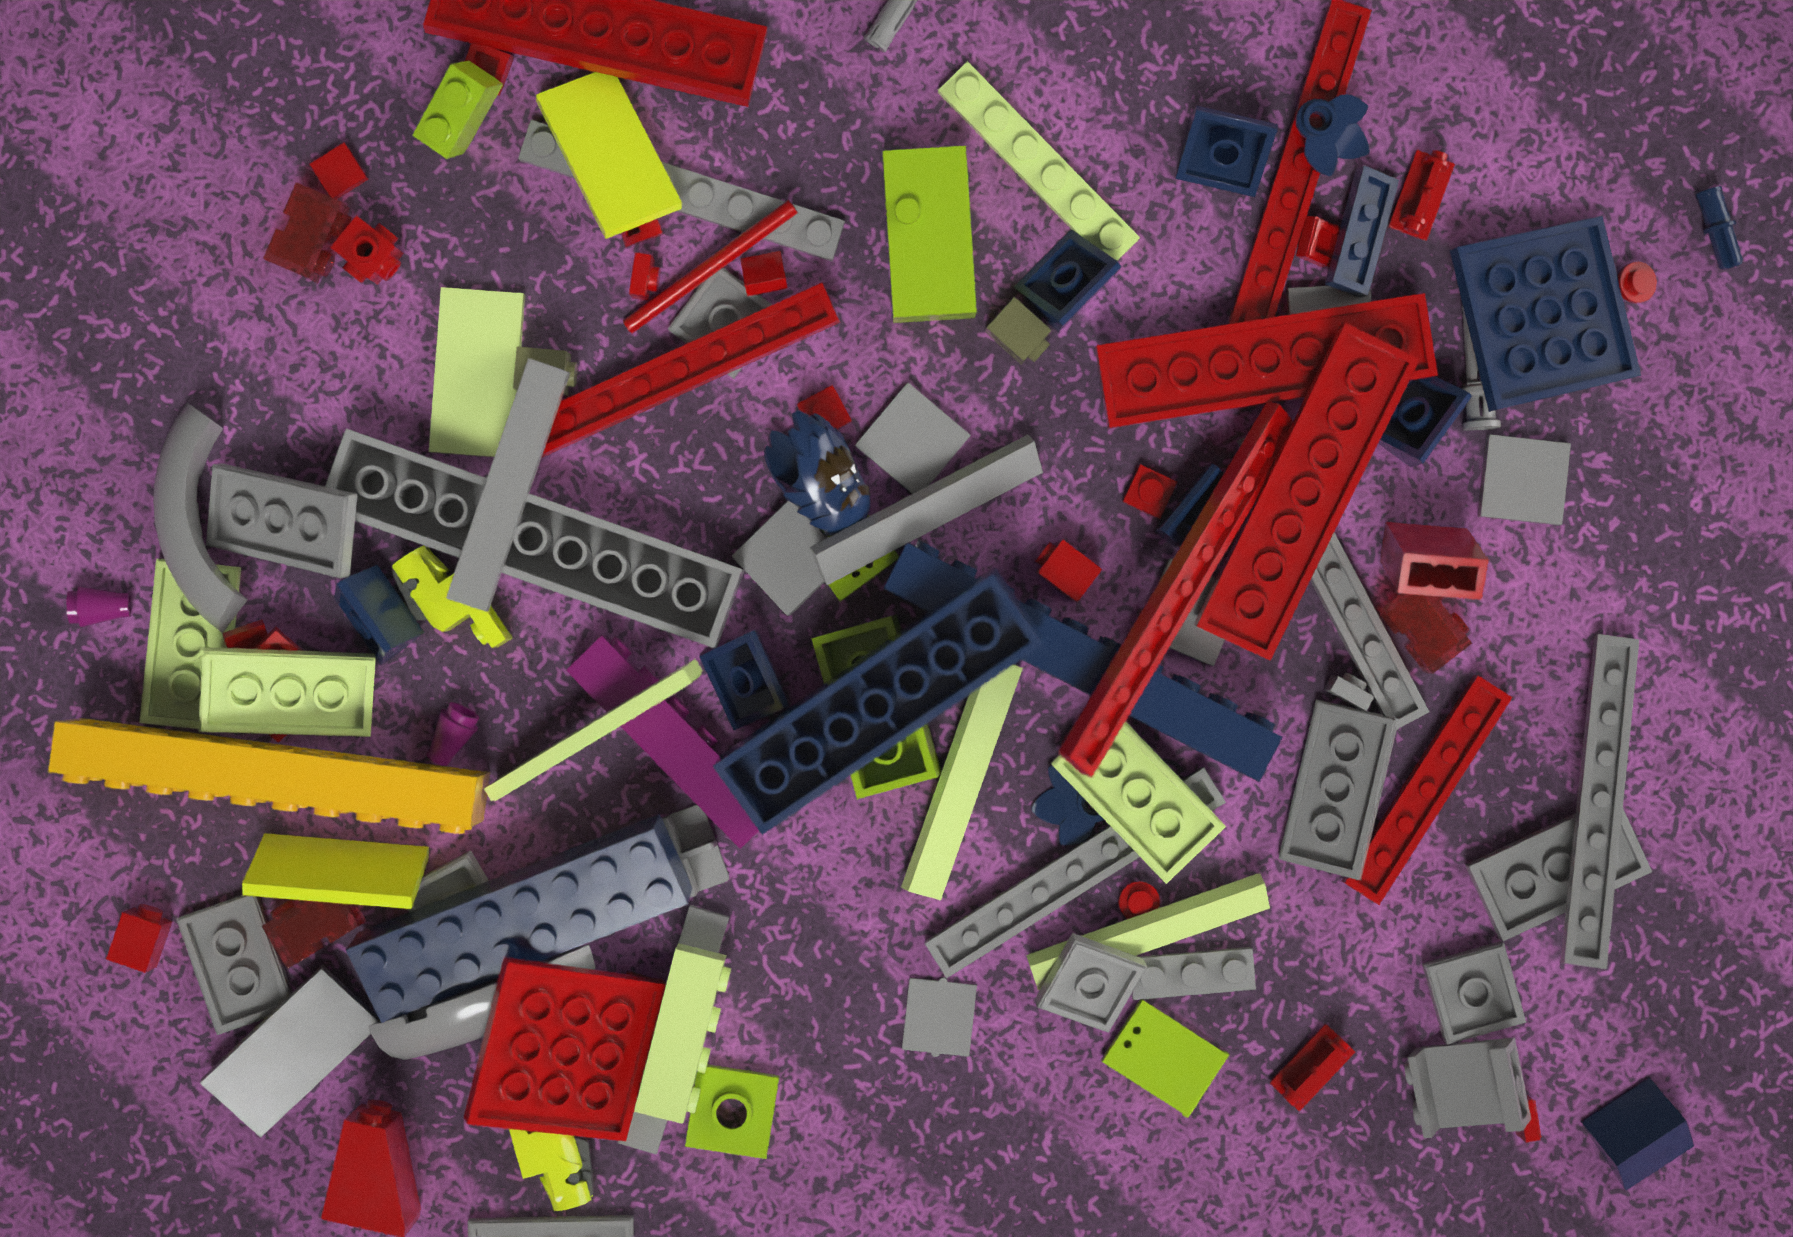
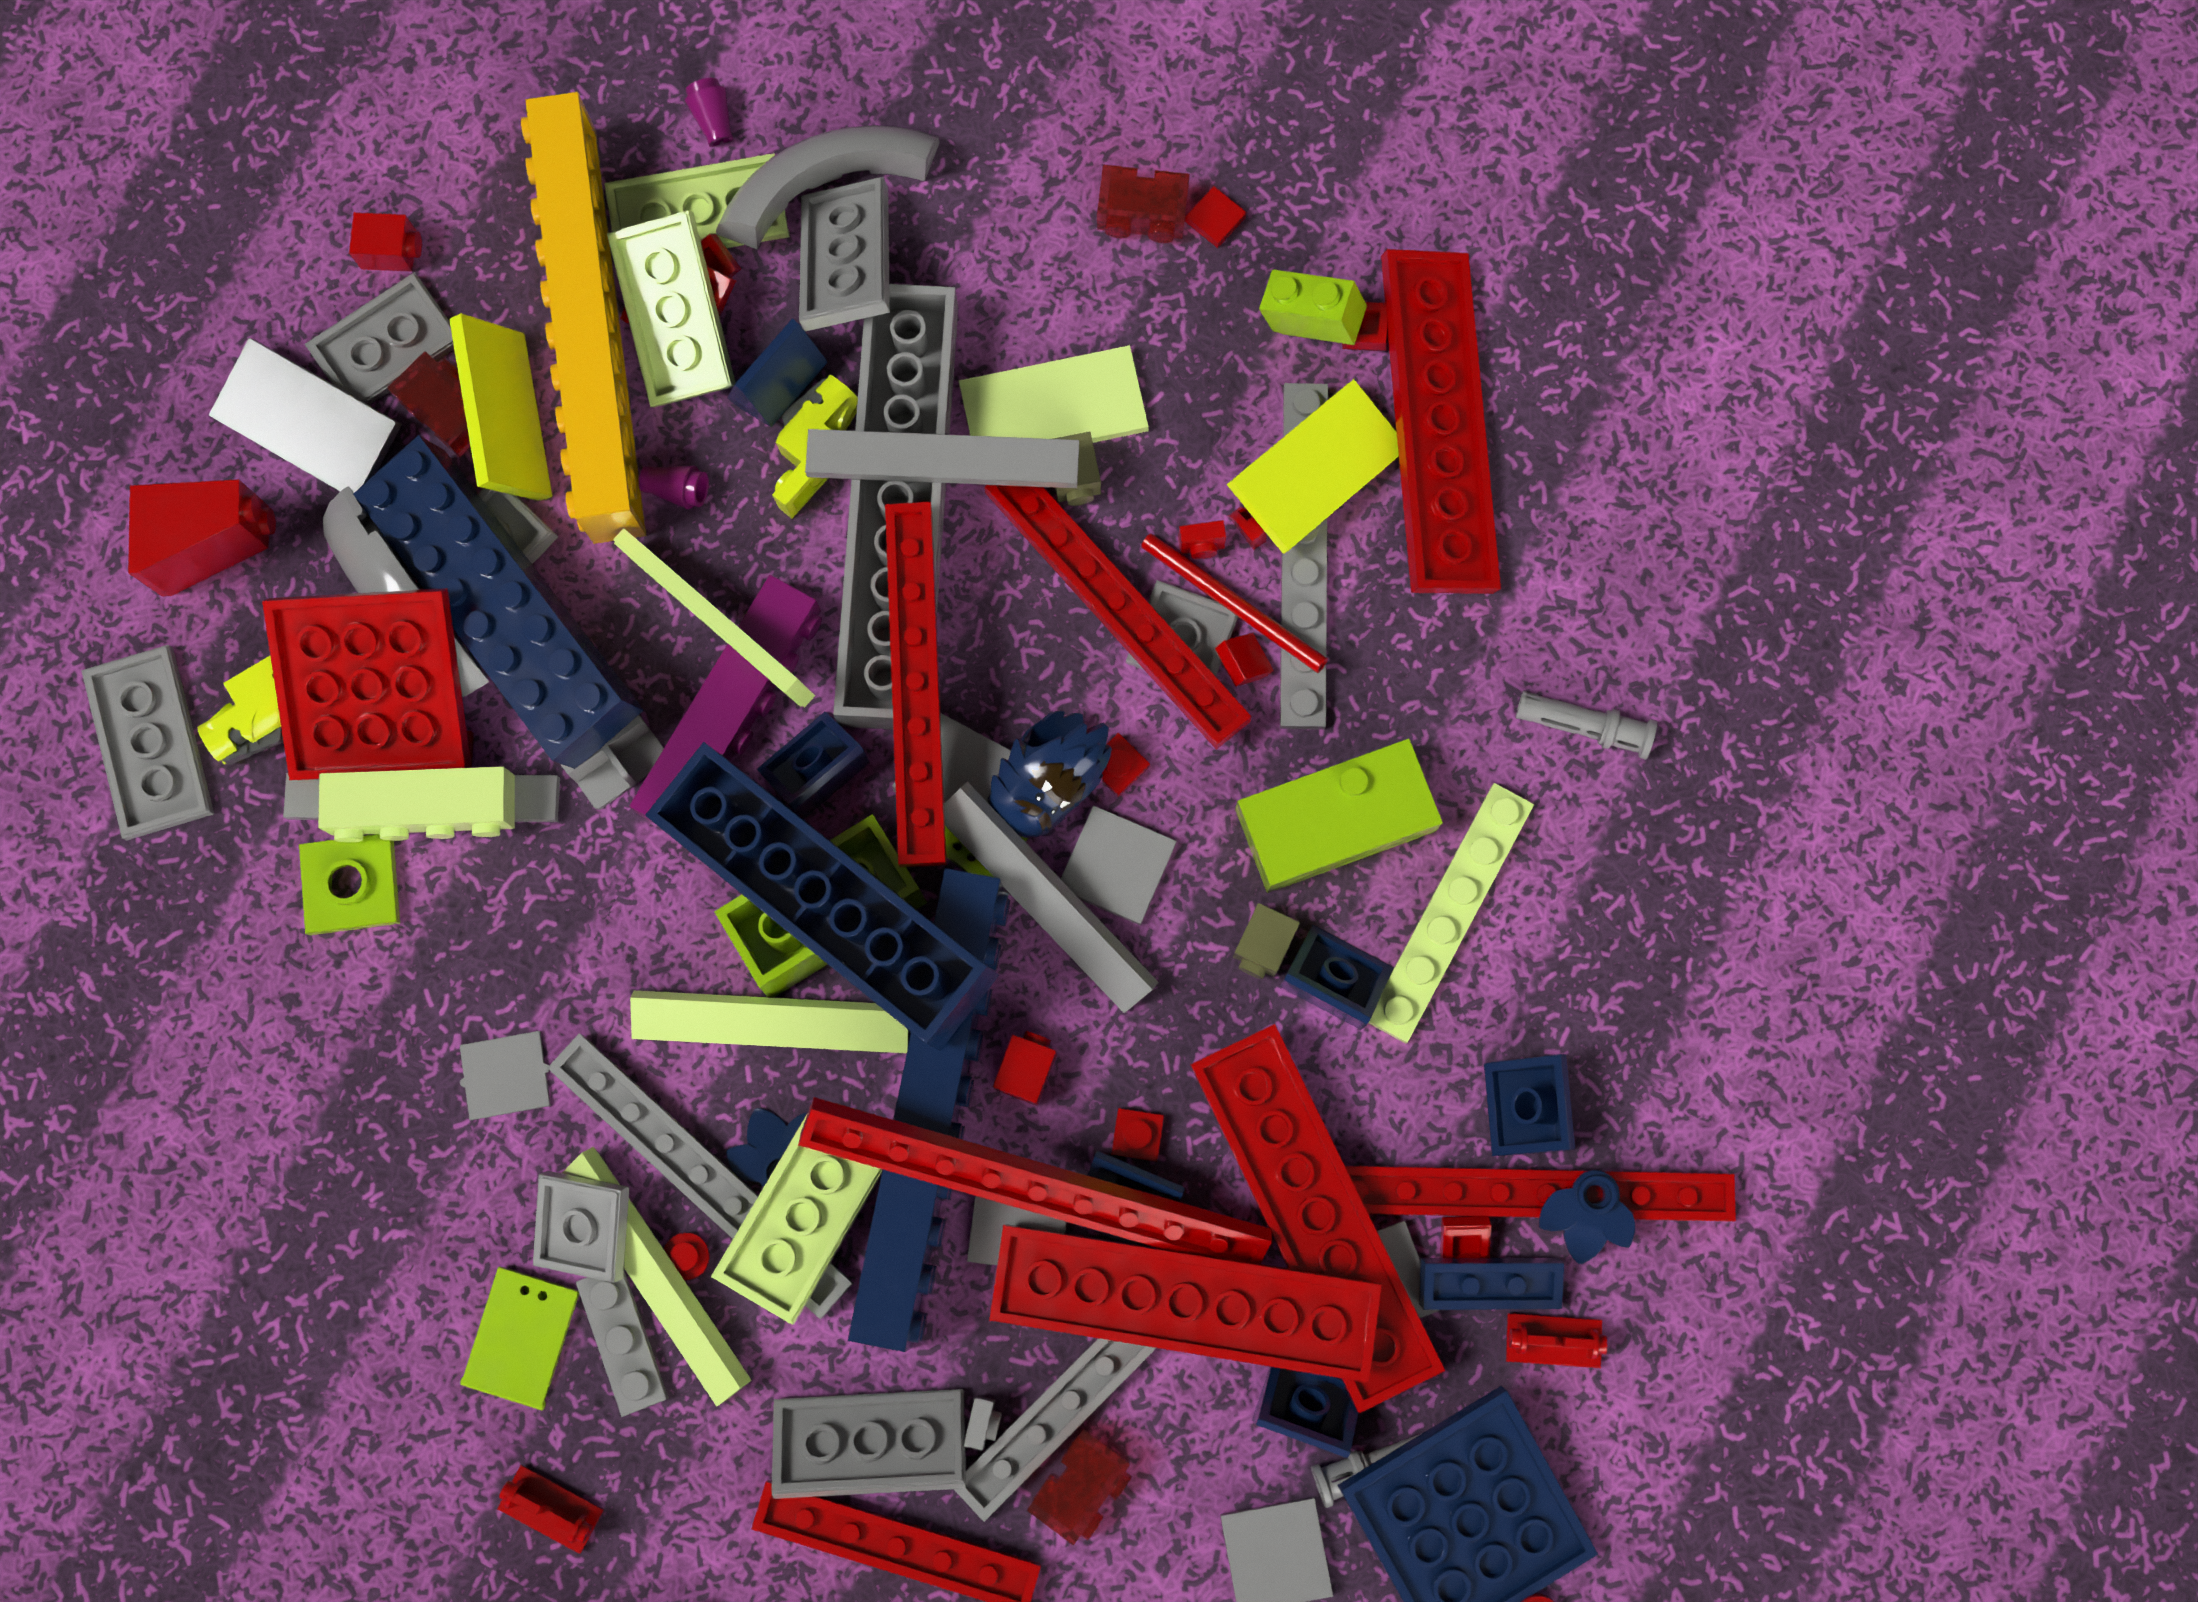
camera: 75 degrees right, 10 degrees down
(357, 242) = (1143, 263): red brick -> none
(708, 567) = (915, 685): none -> red plate
(1433, 560) = (1151, 1470): red brick -> none

